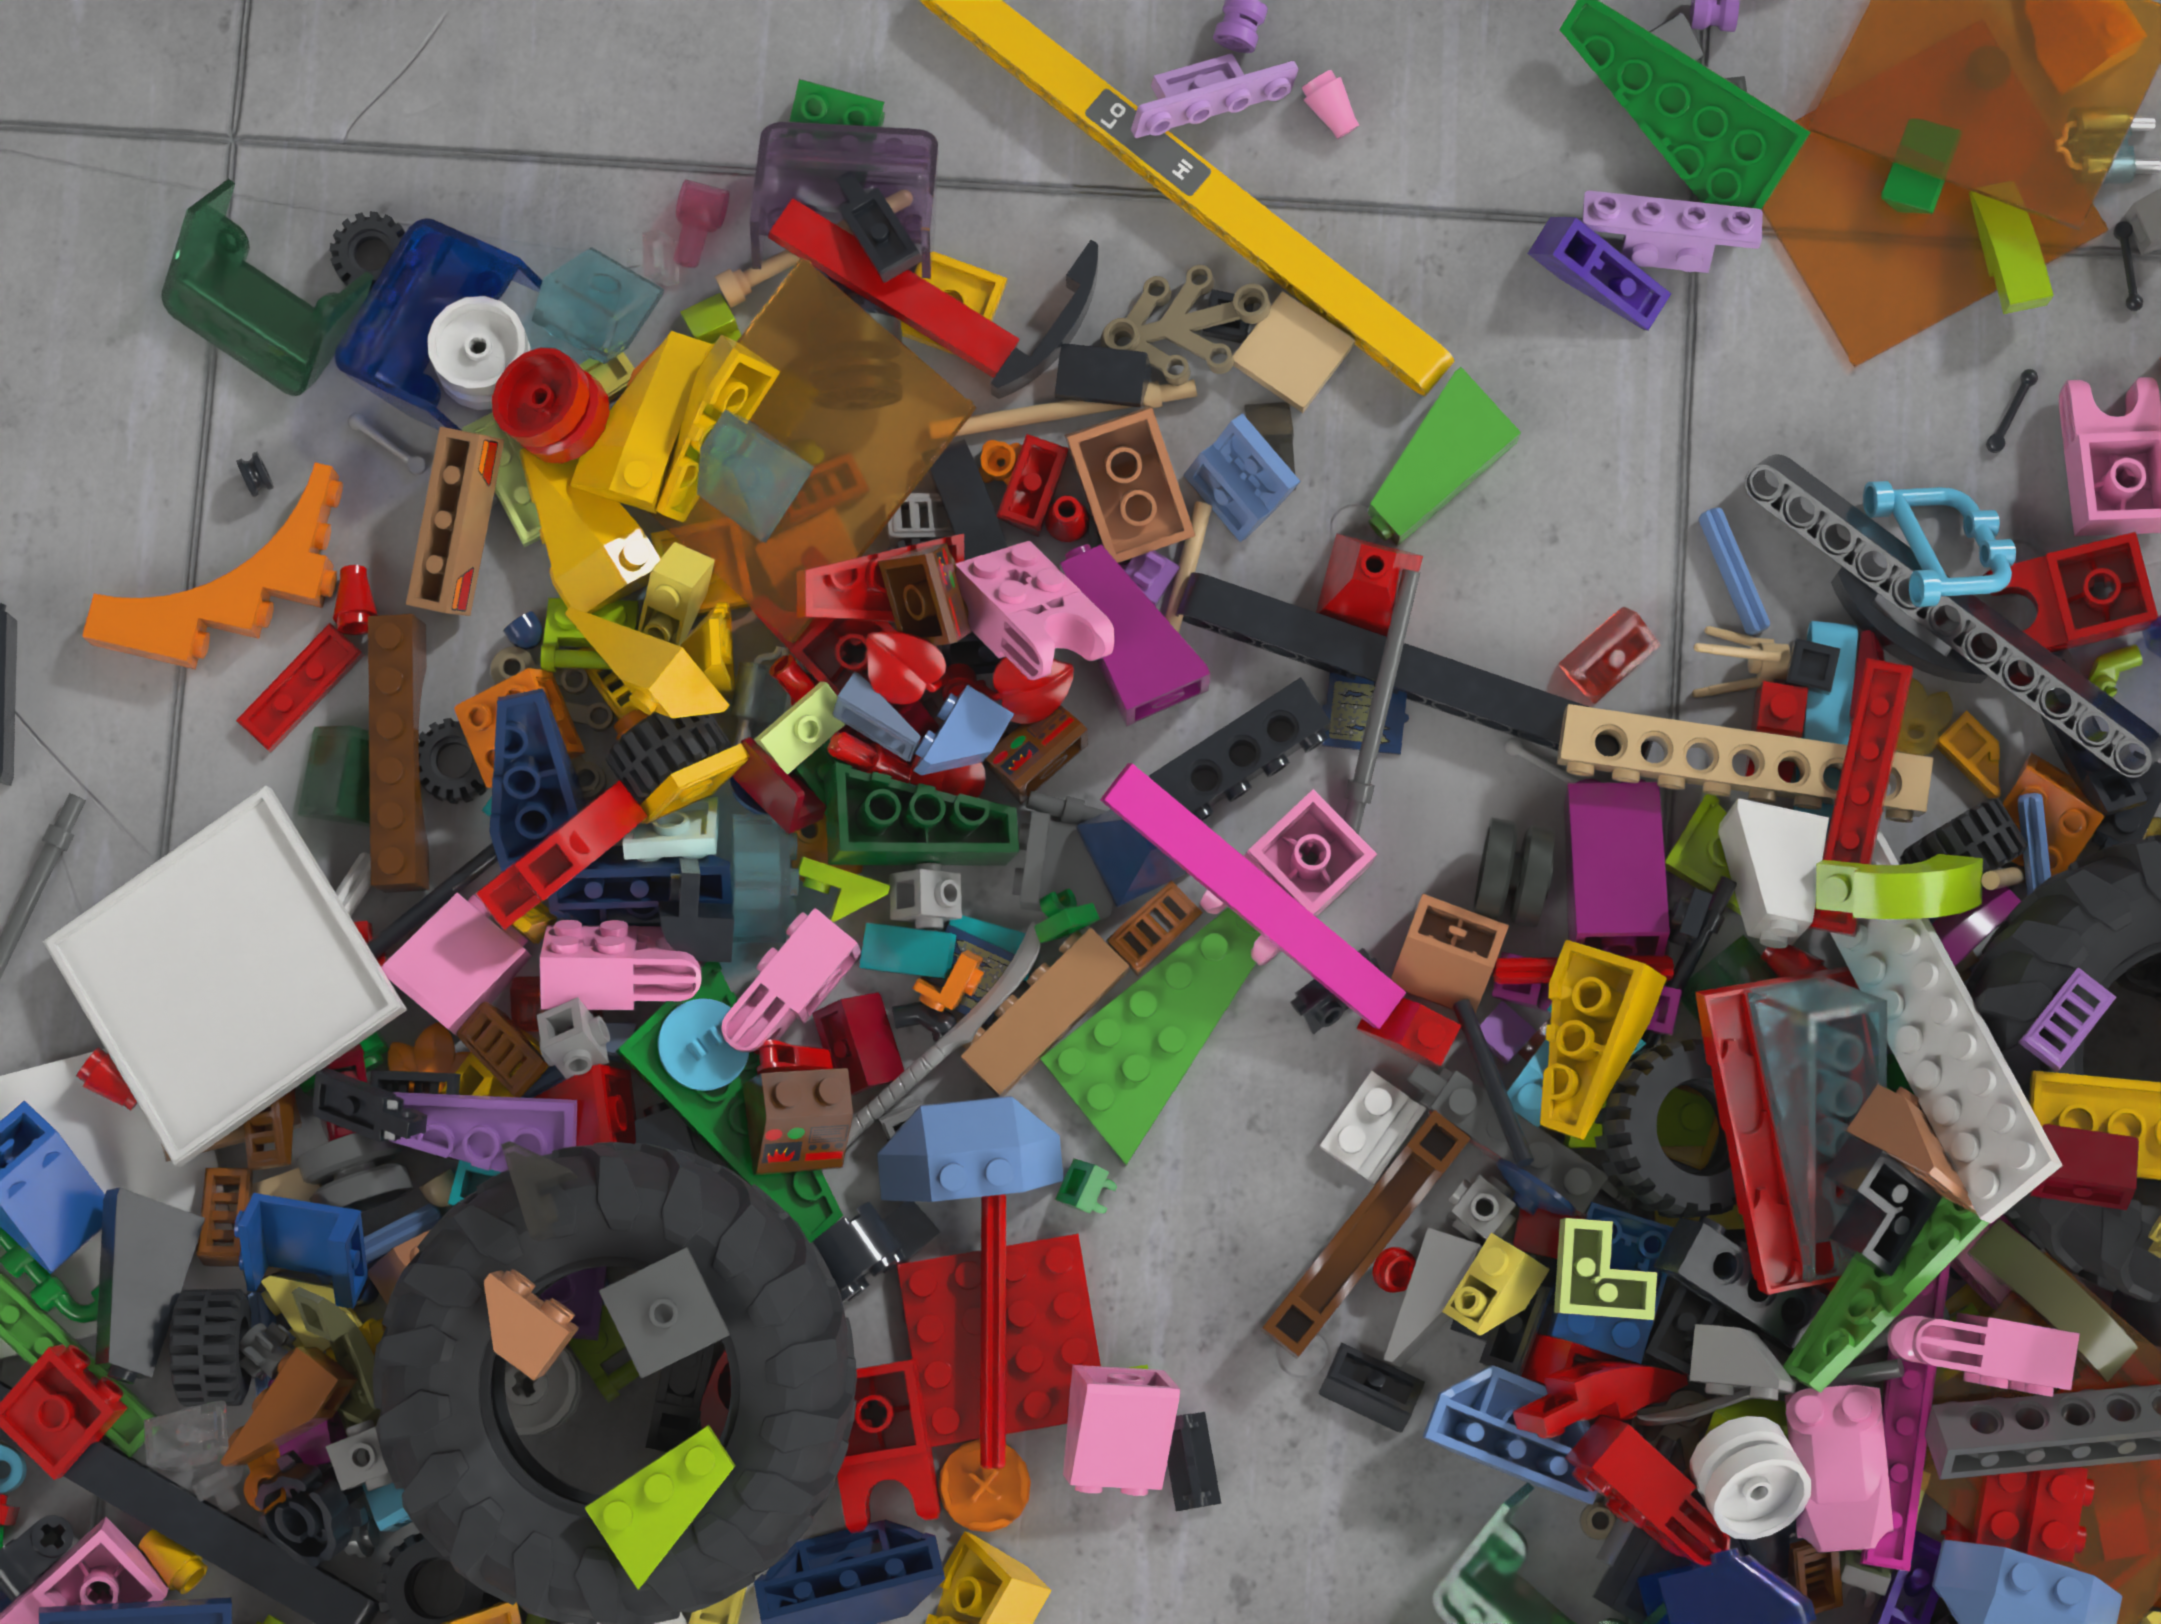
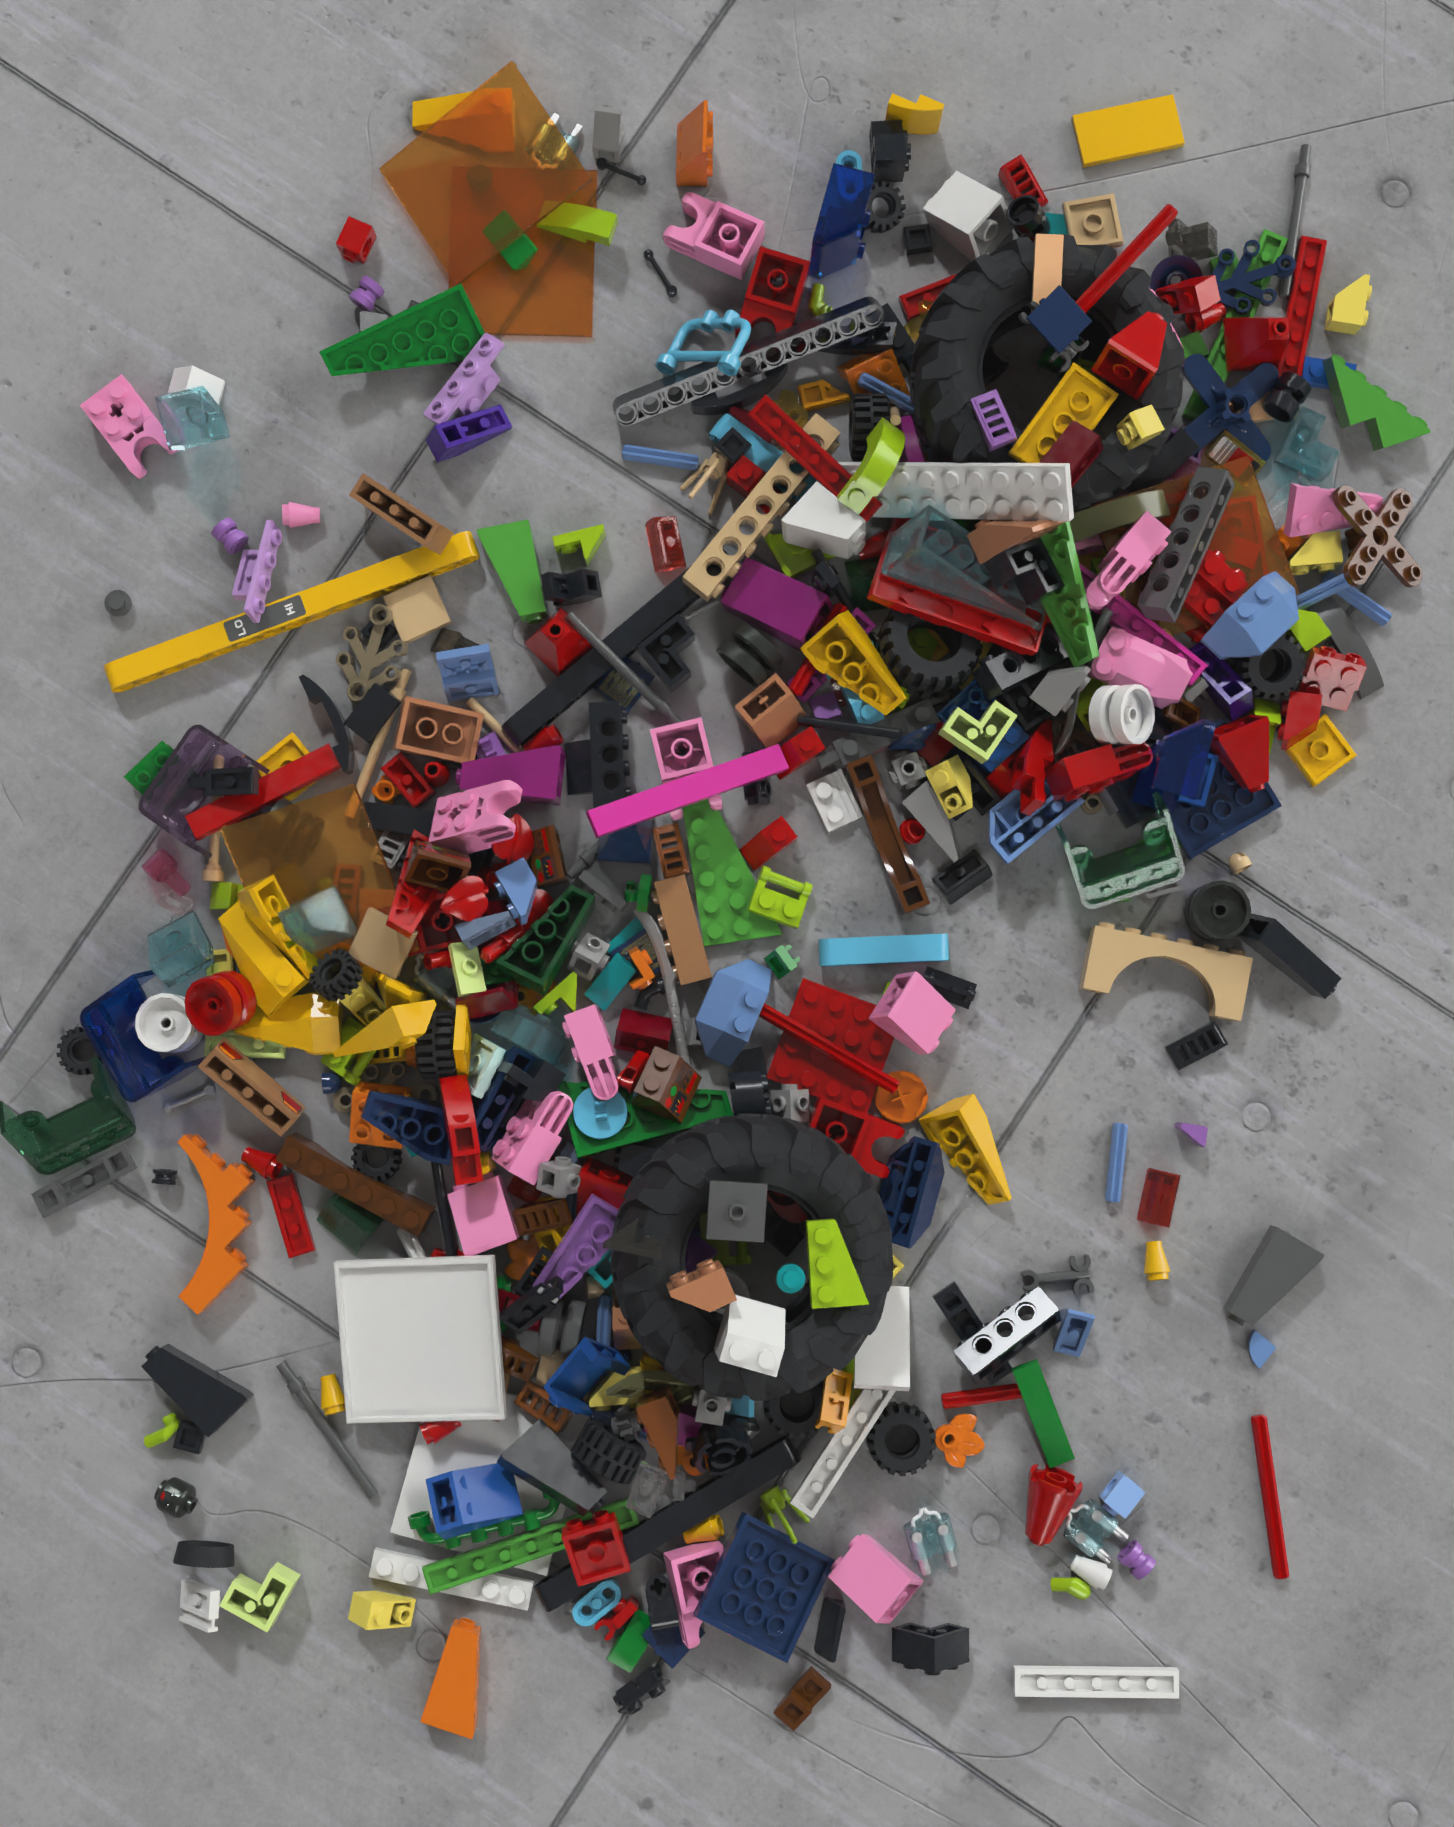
camera: 60 degrees left, 5 degrees up
(71, 897) = (331, 1395): none -> yellow cone
(185, 366) = (84, 1181): none -> dark grey slope
(495, 1437) = (752, 1336): none -> white slope
(611, 1449) = (790, 1278): none -> teal plate
(684, 546) = (324, 978): none -> black tyre
(764, 584) = (380, 945): none -> tan tile
(878, 1322) = (790, 1103): none -> light grey brick
(1163, 1130) = (777, 905): none -> lime plate
(1190, 1331) = (883, 950): none -> medium azure beam
(1197, 720) = (579, 767): none -> black slope
(1212, 646) = (544, 738): none -> red cone
(1249, 1065) = (768, 843): none -> red slope
(1417, 246) = (401, 514): none -> medium nougat brick
(1443, 740) = (662, 652): none -> black brick
(1458, 554) = (571, 588): none -> black brick
(1545, 535) = (587, 538): none -> lime slope

